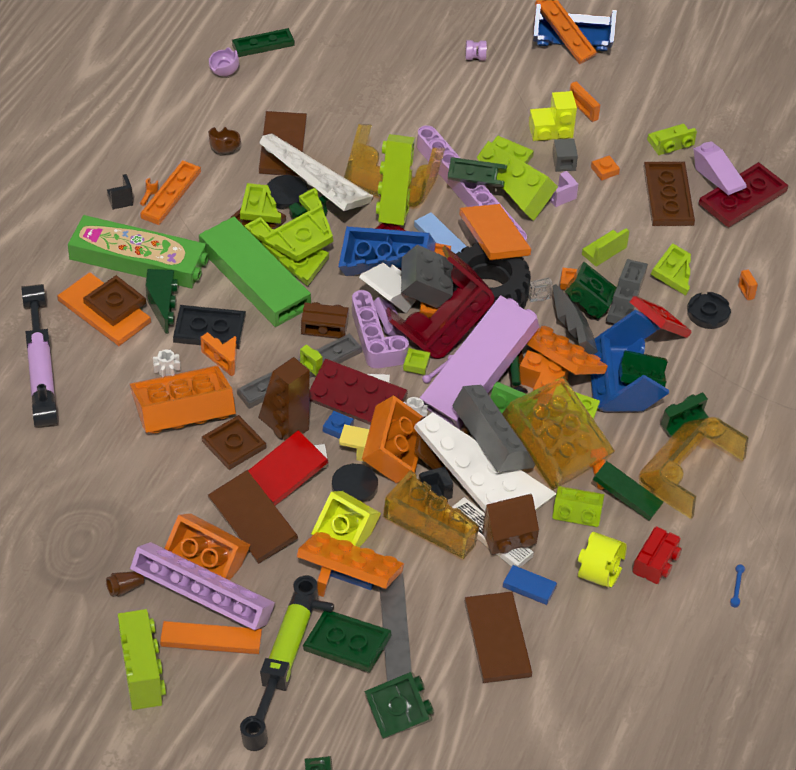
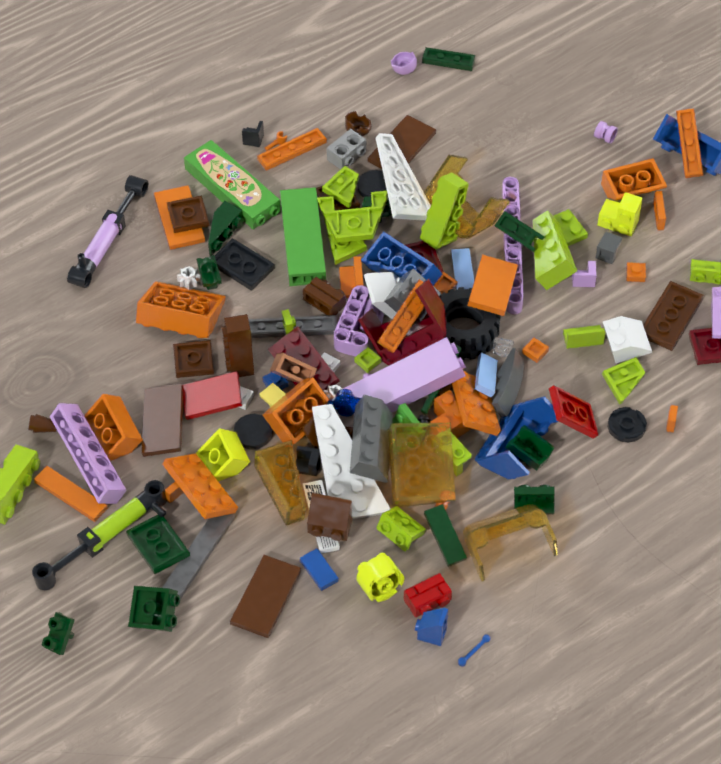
camera: 35 degrees right, 5 degrees up
(183, 344) = (209, 272): none -> dark green hips
(222, 355) = (235, 289): orange slope -> none
(232, 169) = (346, 149): none -> light grey brick
(336, 288) = (351, 276): none -> orange panel
(354, 400) = (291, 368): none -> nougat slope
(439, 296) = (402, 321): none -> orange tile
(440, 404) = (344, 402): none -> clear blue plate
(538, 82) = (632, 179): none -> orange slope
(550, 322) = (486, 374): none -> light blue tile
(591, 290) = (539, 365): dark green plate -> none
(628, 287) = (575, 376): dark grey slope -> none
(649, 231) = (626, 338): none -> white slope
(688, 579) = (432, 626): none -> blue slope

